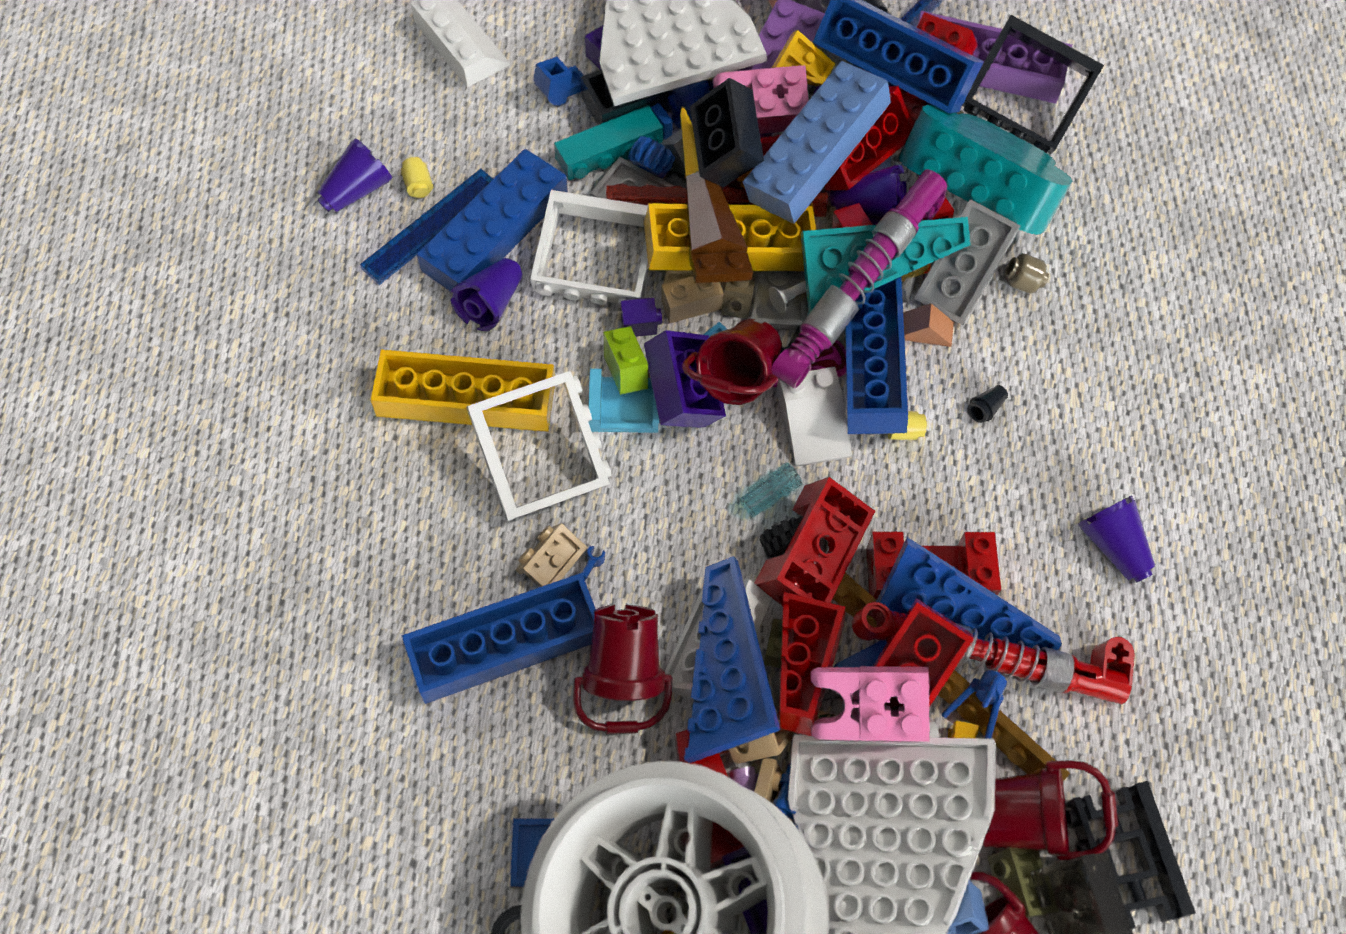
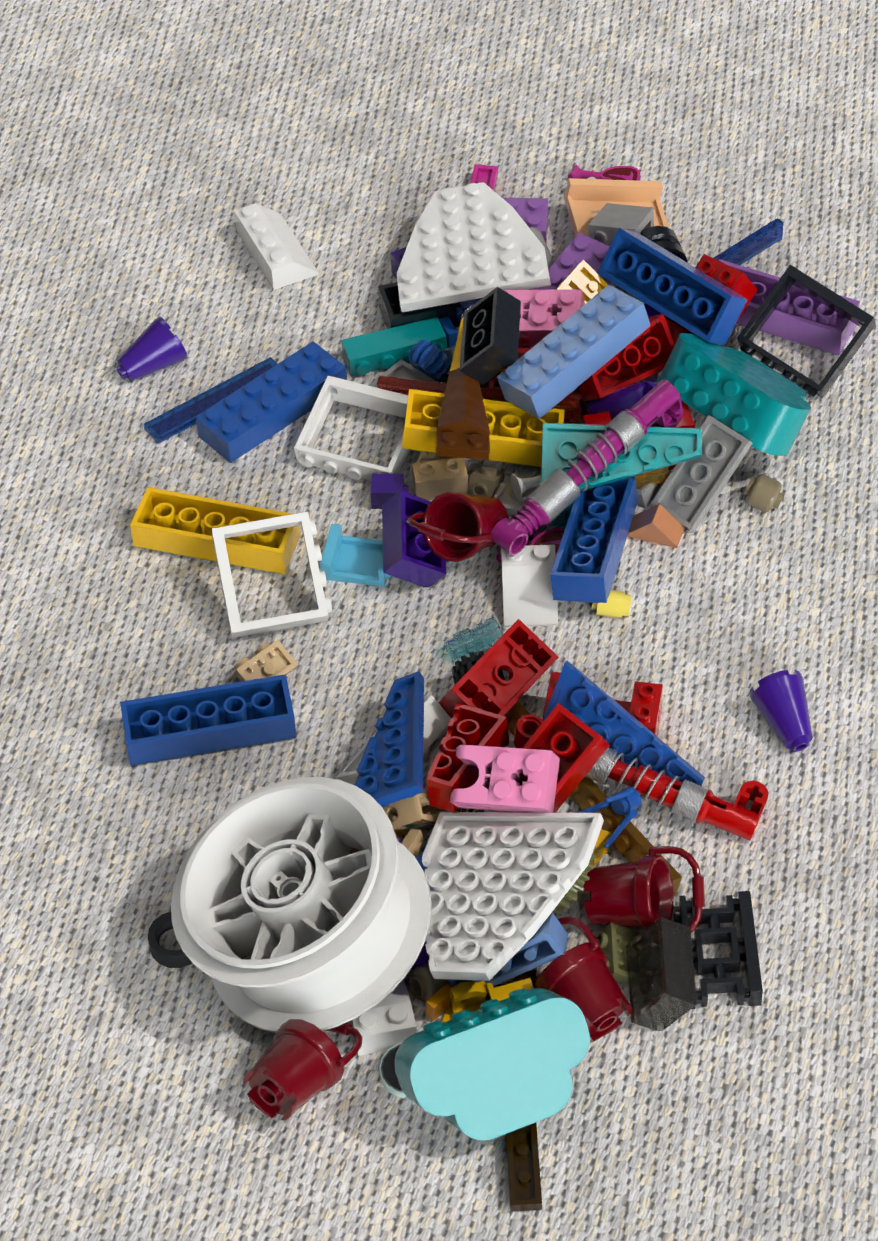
camera: 15 degrees right, 15 degrees down
(416, 177) = (209, 358): light yellow brick -> none
(486, 293) = (252, 456): dark purple cone -> none
(557, 80) = (356, 289): blue brick -> none
(592, 561) = (301, 676): blue hand -> none
(624, 665) = (306, 737): dark red piece -> none
(625, 360) = (365, 521): lime brick -> none
(987, 404) = (695, 594): black cone -> none

